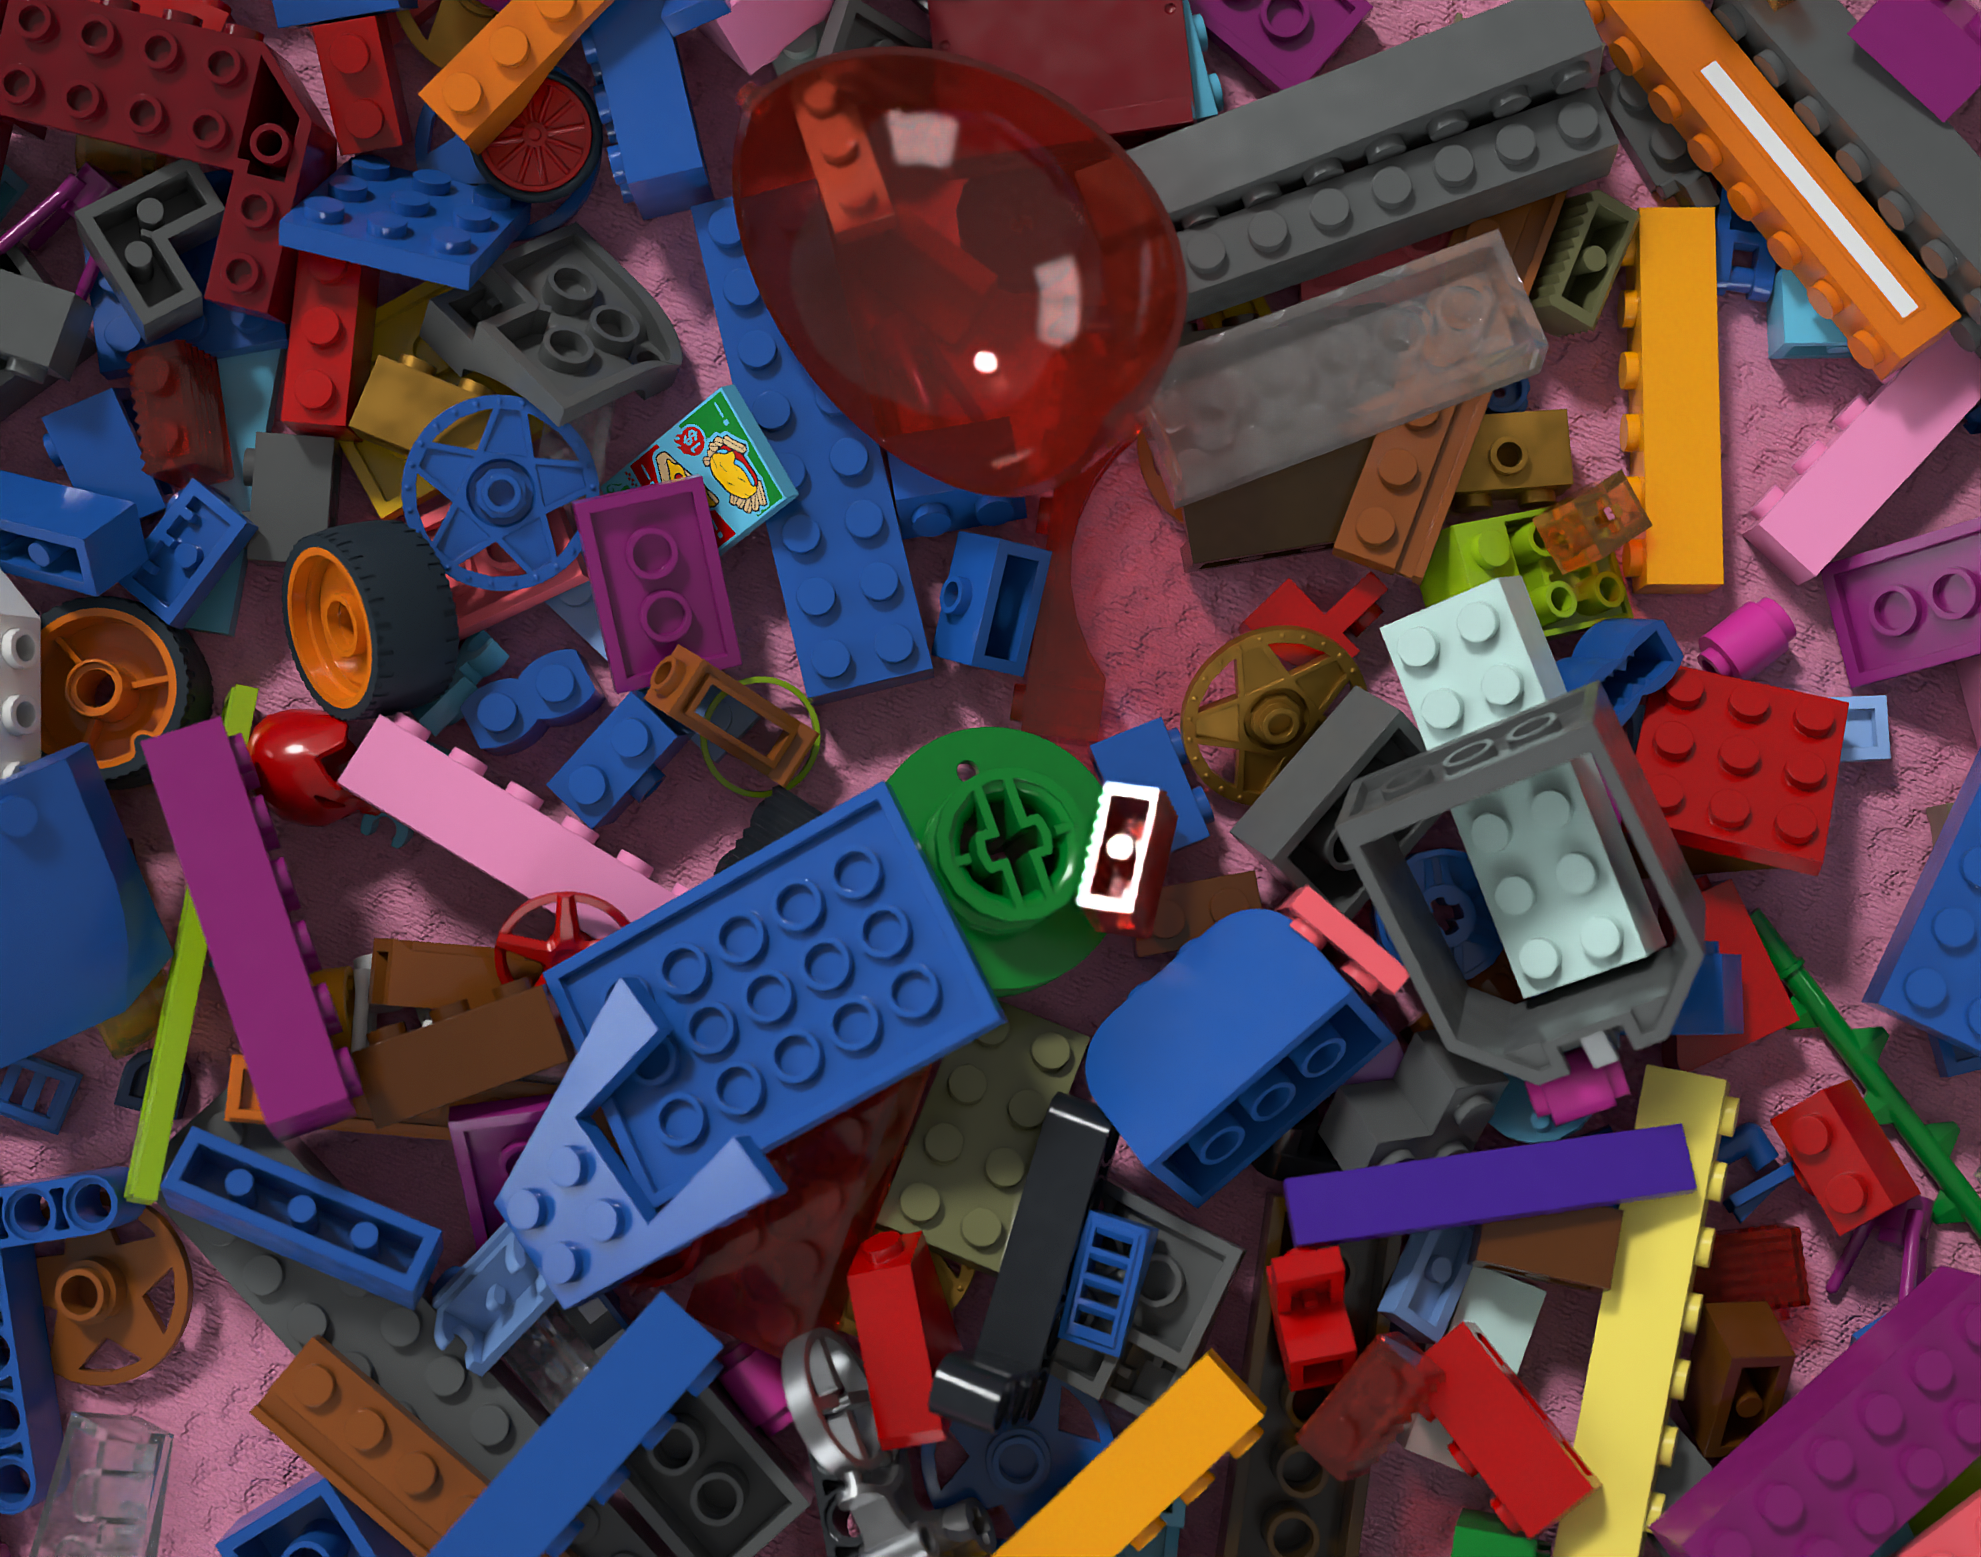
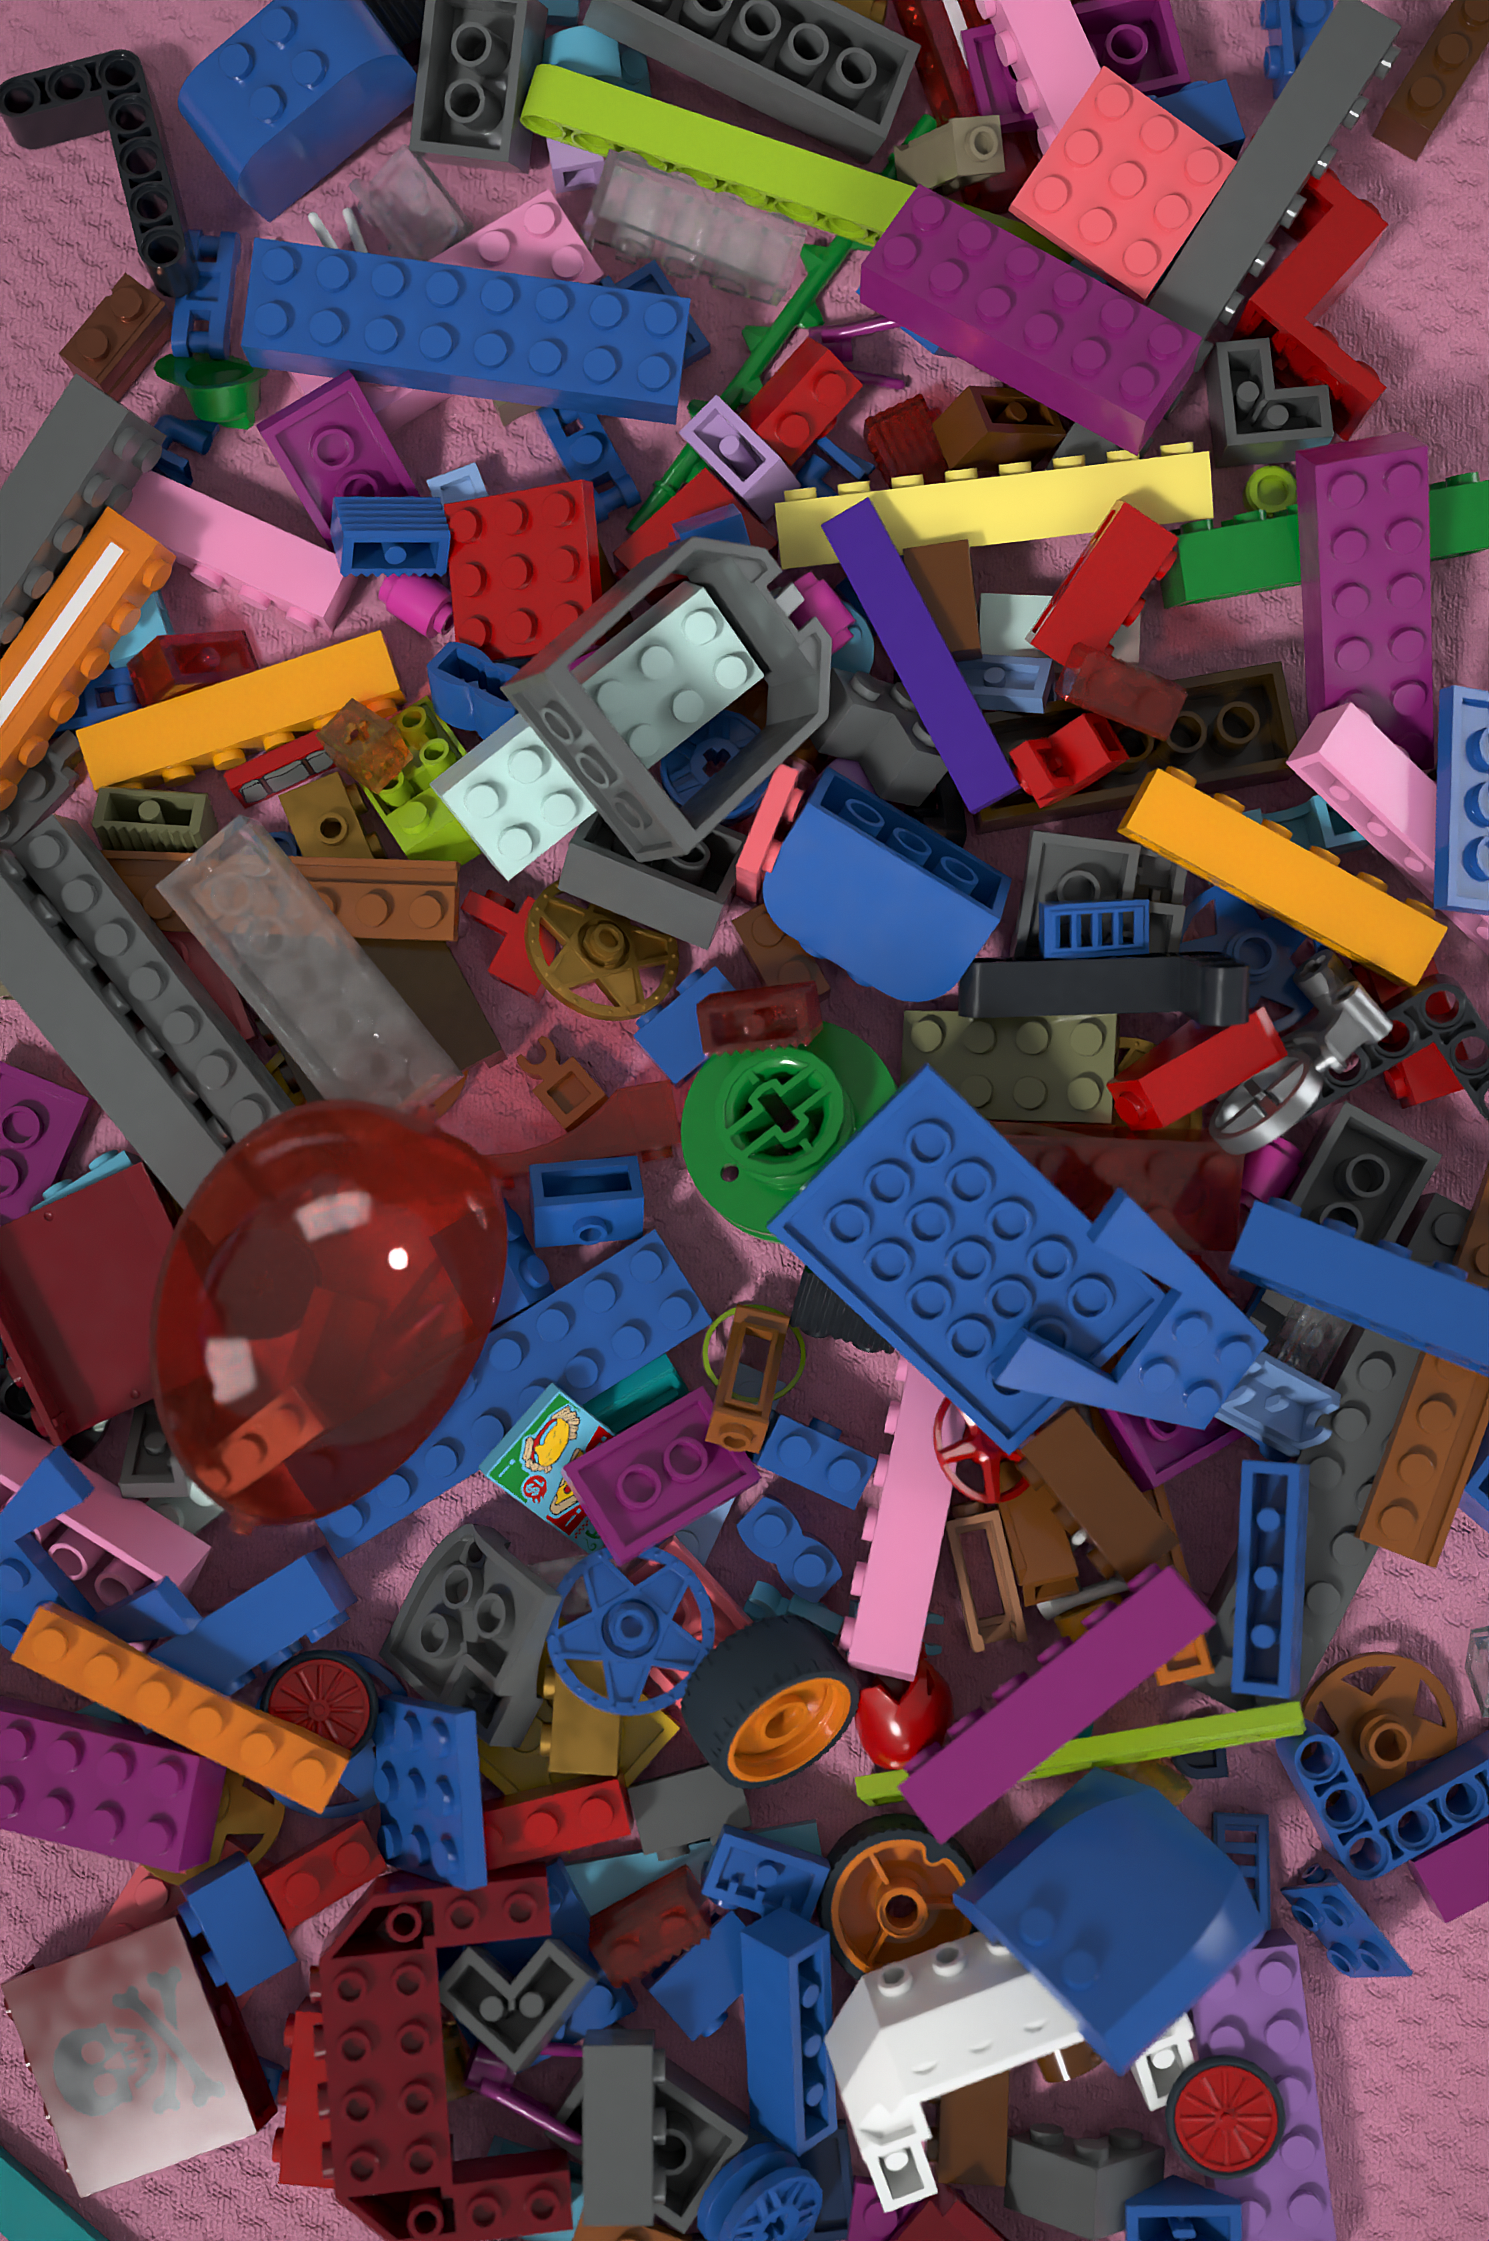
camera: 105 degrees left, 0 degrees up
(369, 901) = (972, 1517): none -> nougat window
(756, 592) = (638, 1395): none -> teal tile
(1127, 626) = (565, 1089): none -> dark orange plate
(1597, 419) = (278, 770): none -> tile
(1752, 361) = (188, 663): none -> clear red slope
(1799, 1064) = (739, 457): none -> lavender slope
(1830, 629) = (390, 535): none -> blue brick
(1848, 892) = (590, 457): none -> blue plate

